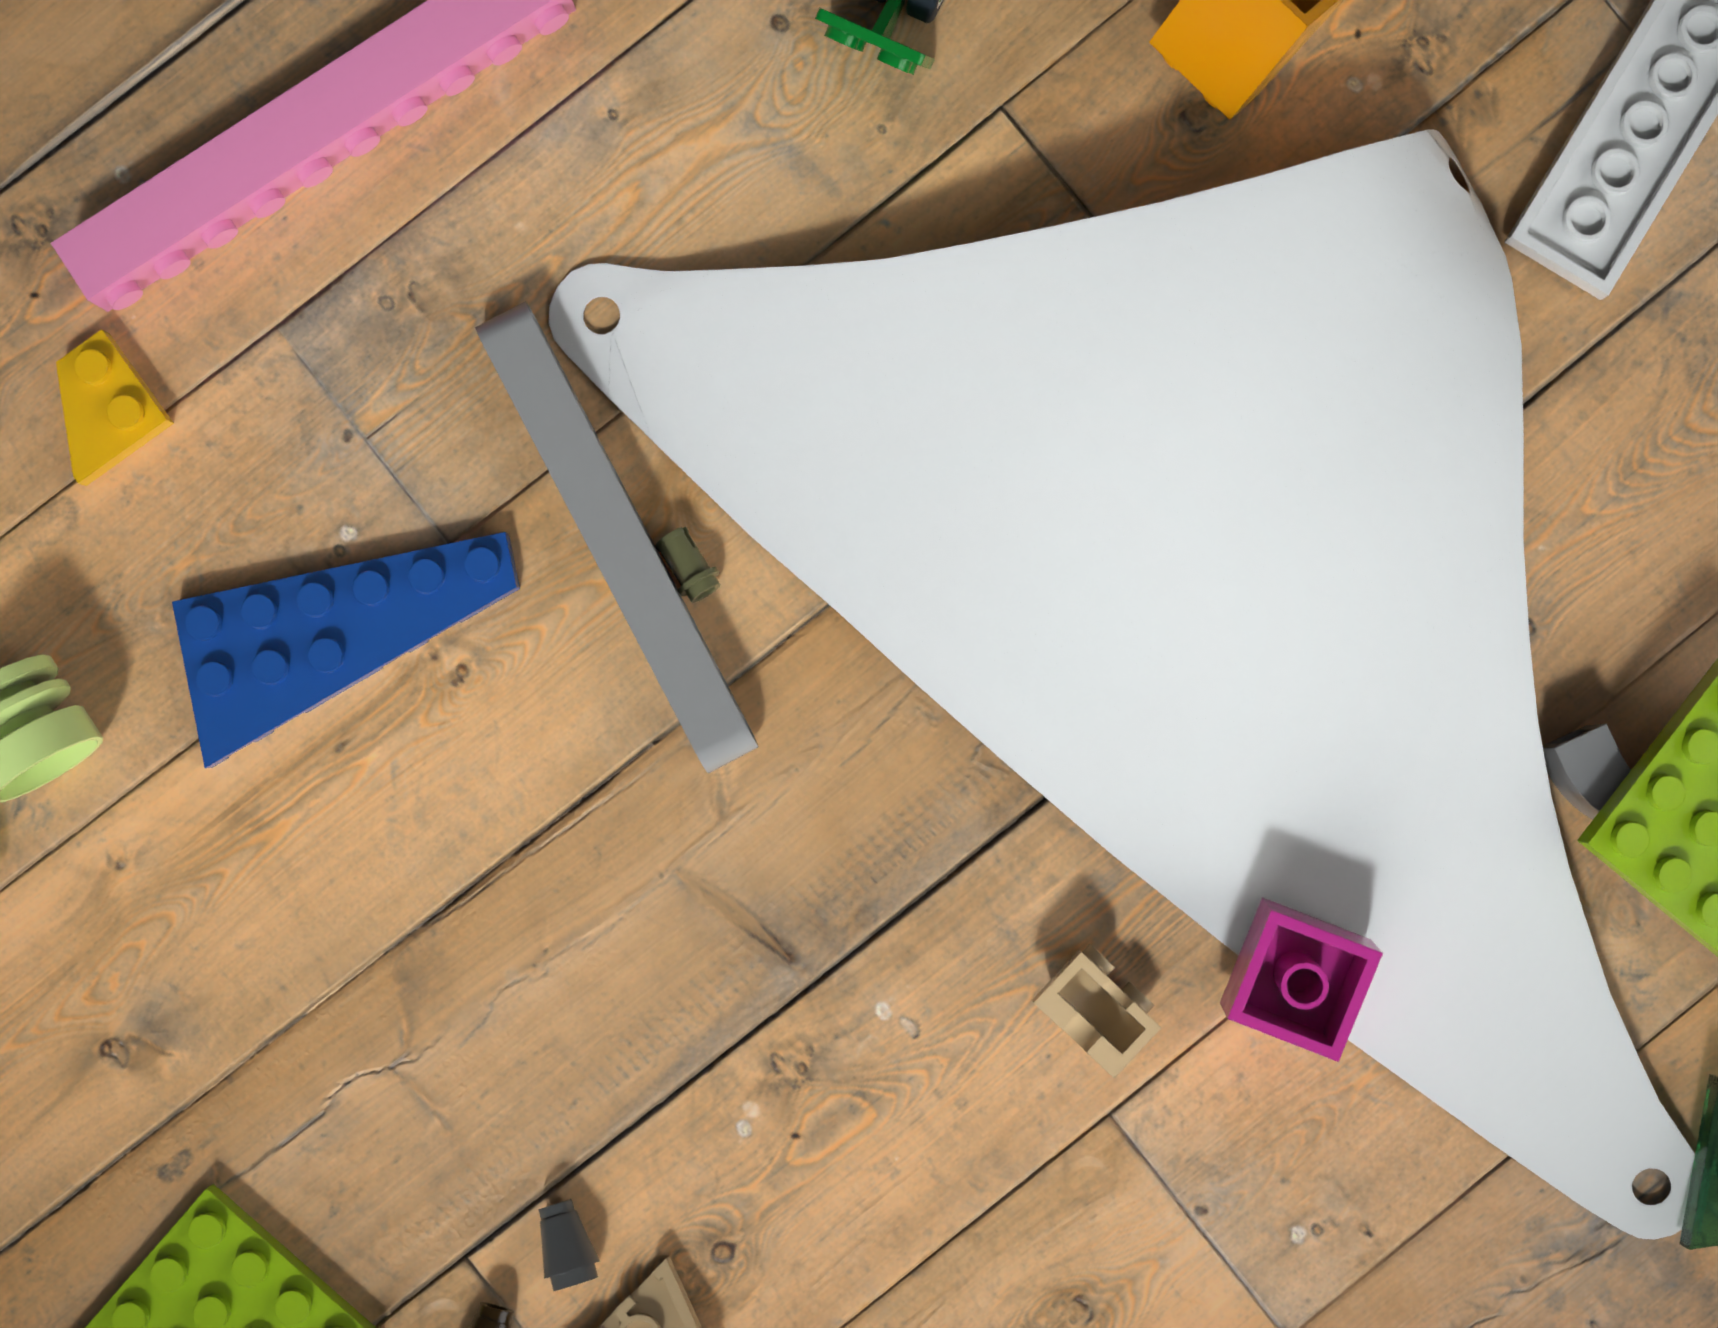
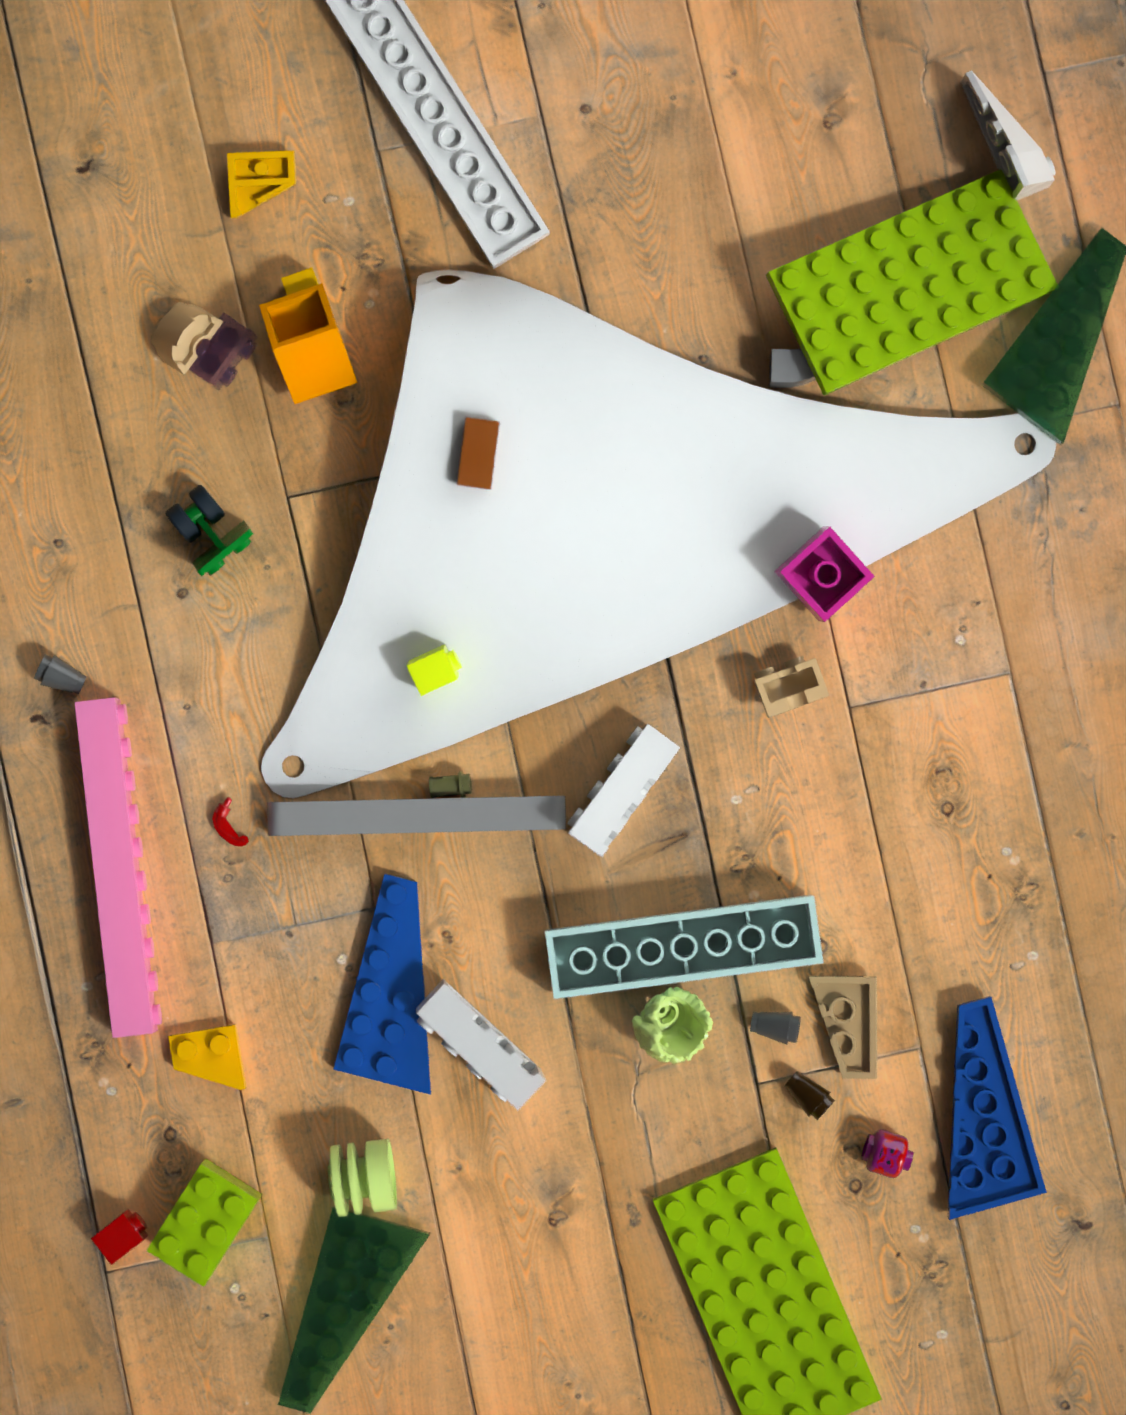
camera: 65 degrees left, 0 degrees up
(310, 810) = (481, 1044): none -> white wedge
(459, 257) = (223, 826): none -> red piece
(483, 1089) = (672, 1026): none -> yellowish green hair
(616, 1046) = (683, 946): none -> light aqua brick
(809, 831) = (623, 790): none -> white wedge
(850, 449) = (434, 669): none -> neon yellow brick
(1220, 345) = (478, 453): none -> dark orange tile

